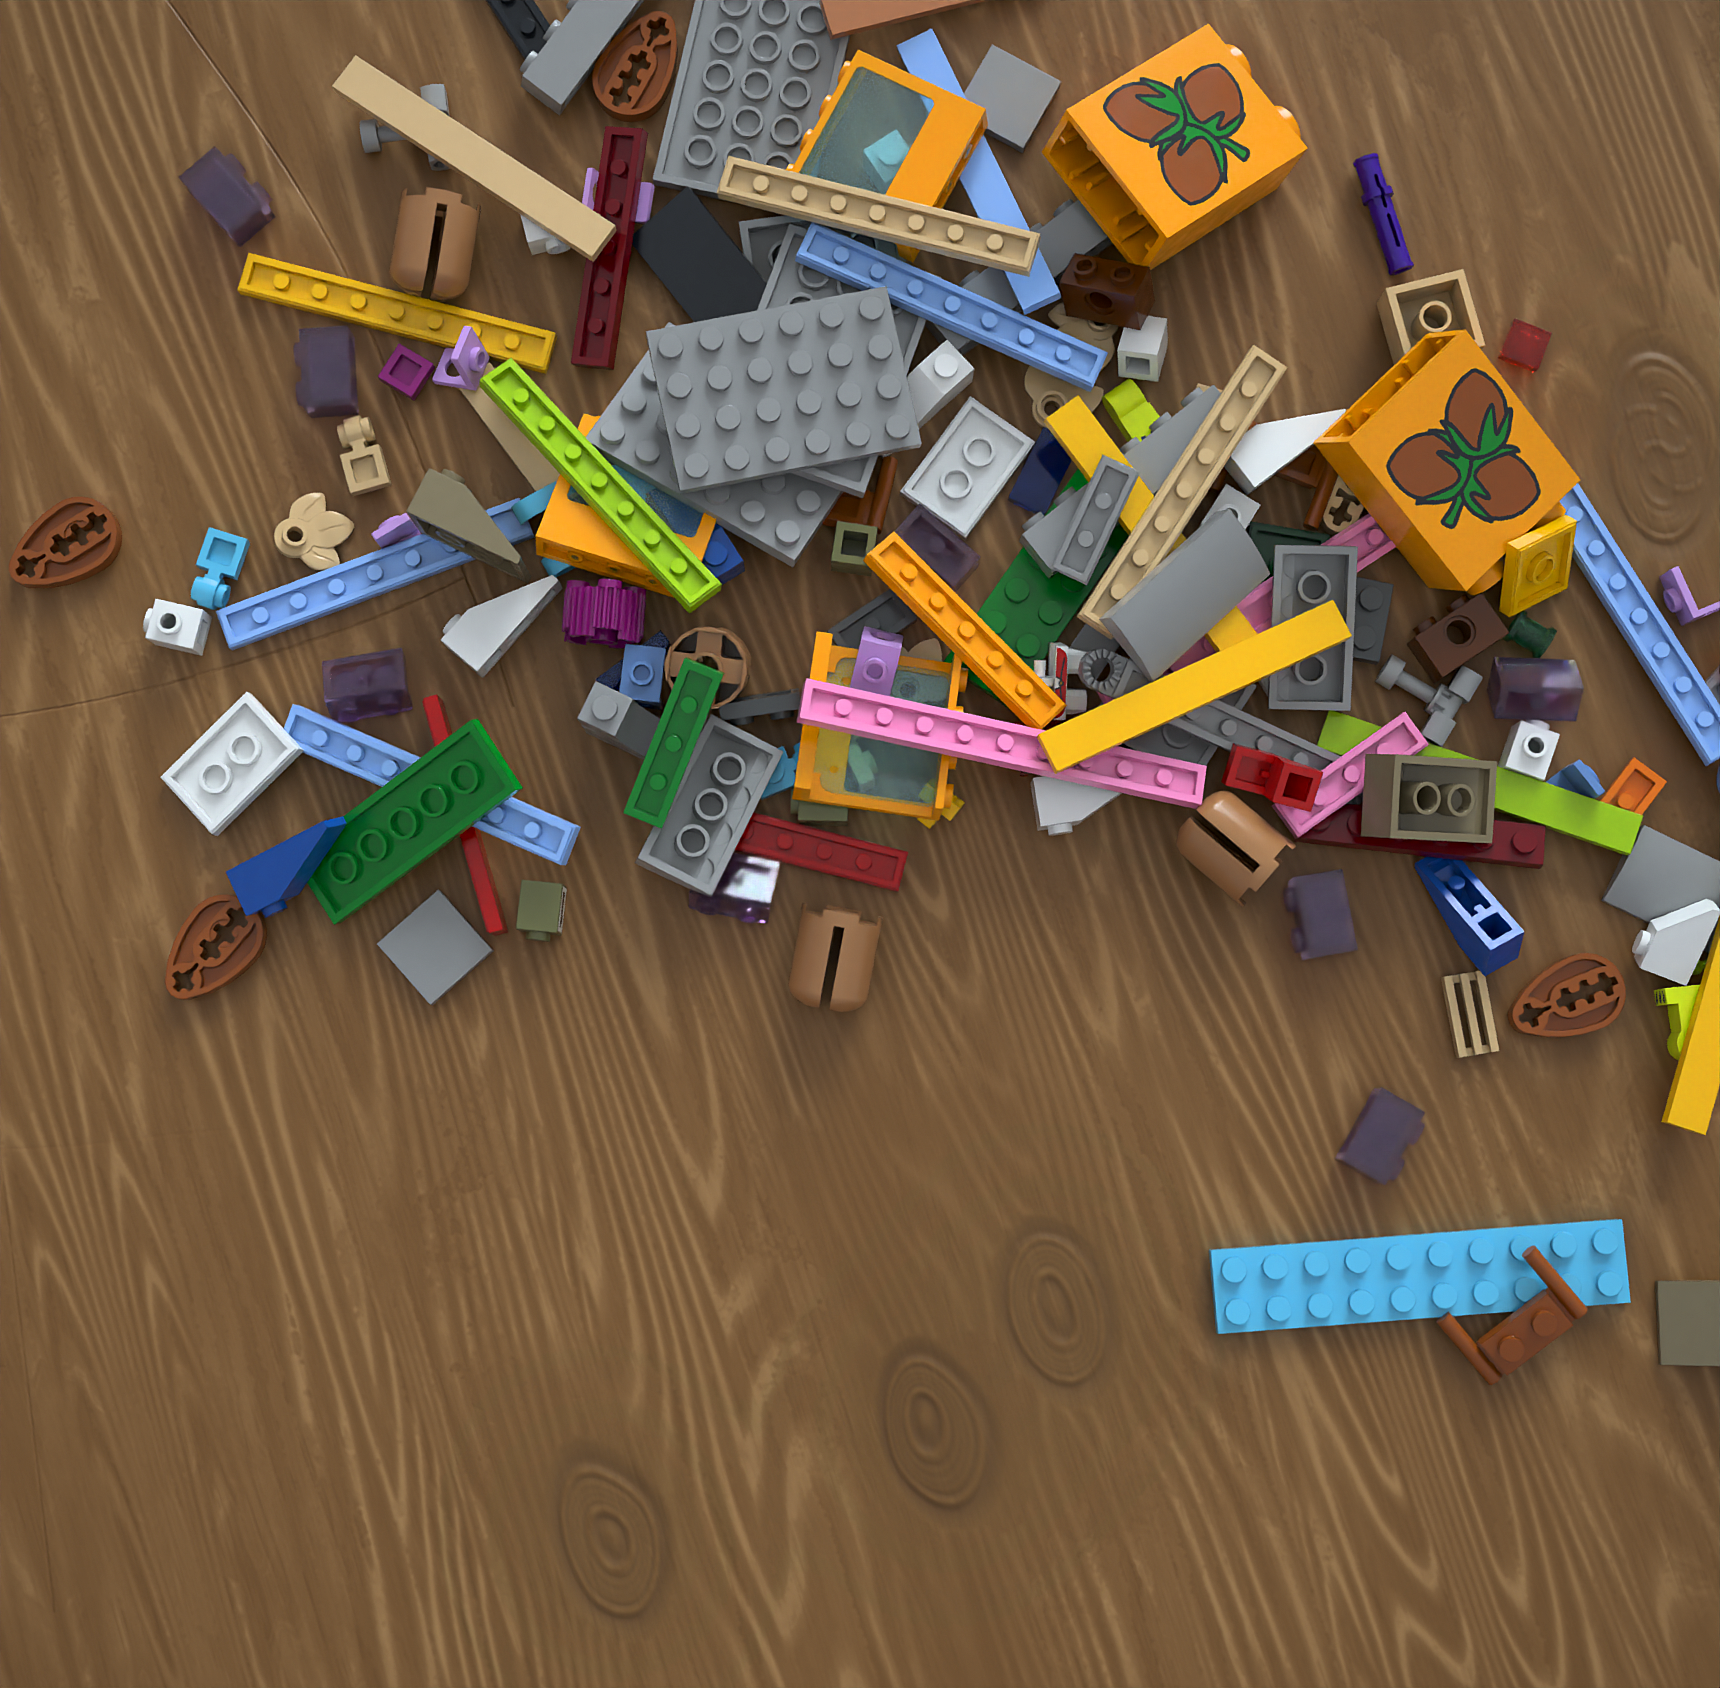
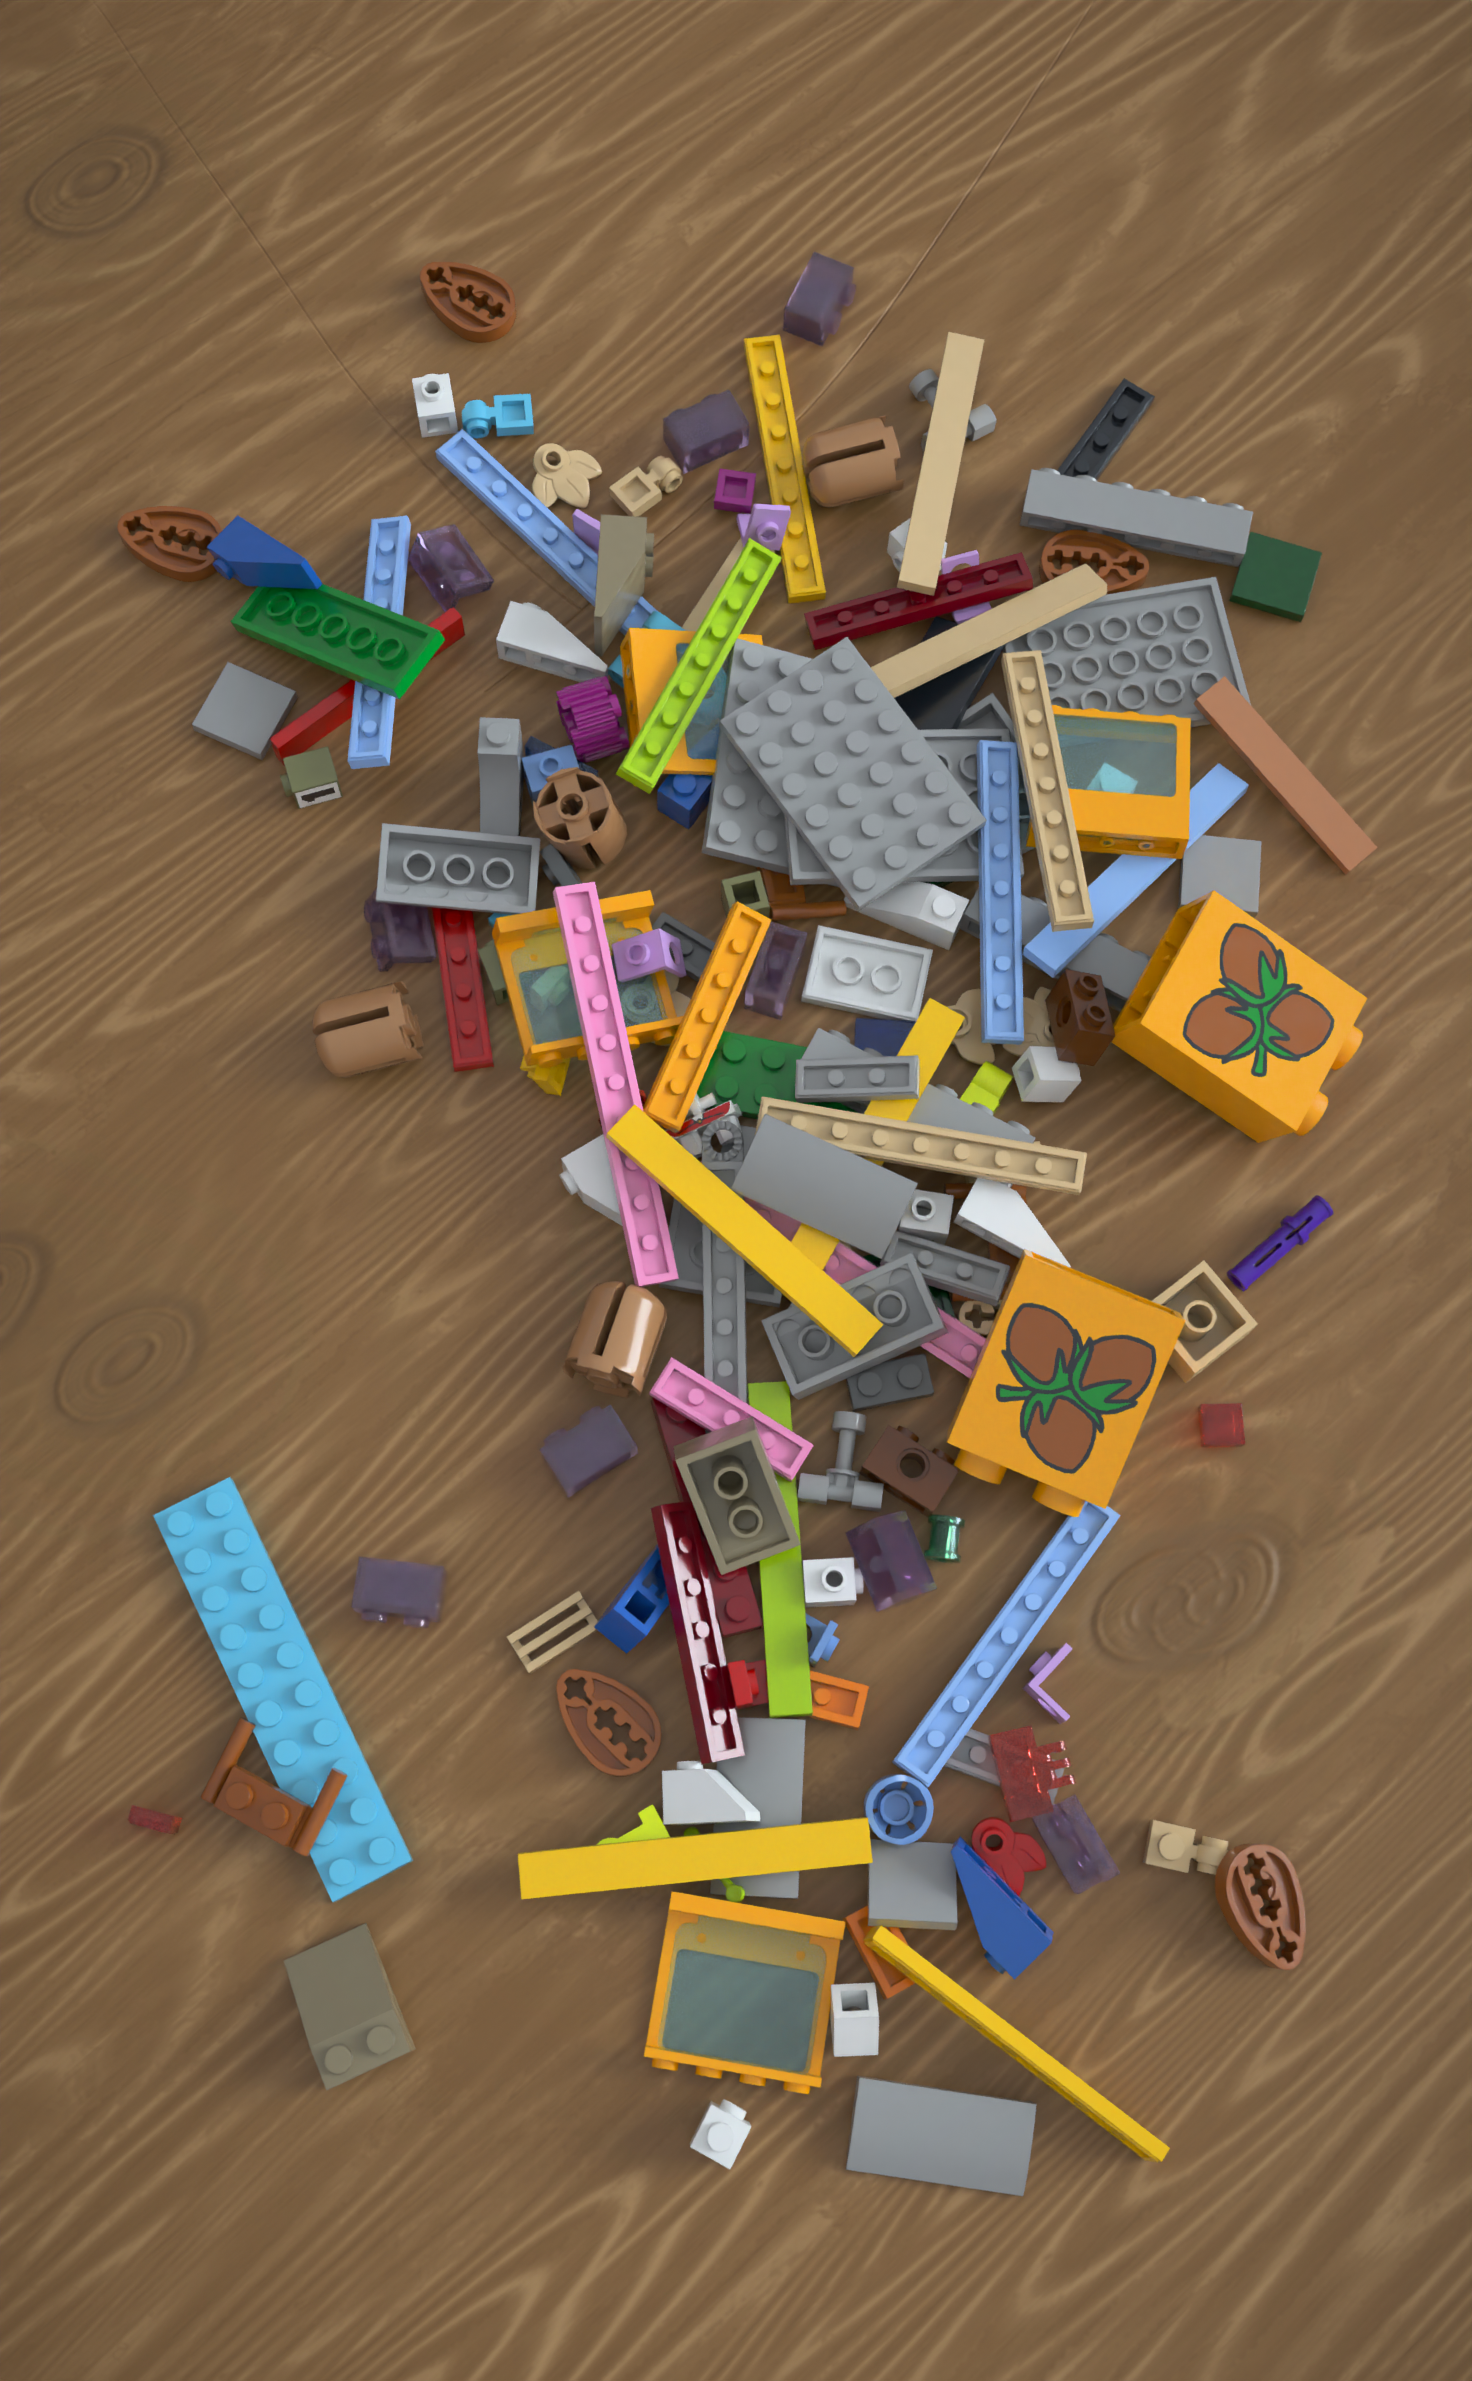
camera: 65 degrees right, 10 degrees down
(232, 764) = (336, 491): white tile -> none
(673, 742) = (493, 805): green plate -> none
(676, 194) = (990, 630): none -> tan tile
(1272, 776) = (696, 1340): red slope -> none
(1295, 512) = (951, 1268): none -> light grey tile
(1497, 1432) = (154, 1820): none -> clear red tile
(1532, 885) = (697, 1632): none -> dark red plate
(1537, 565) = (1008, 1510): yellow tile -> none
(1589, 862) = (748, 1683): none -> red bracket

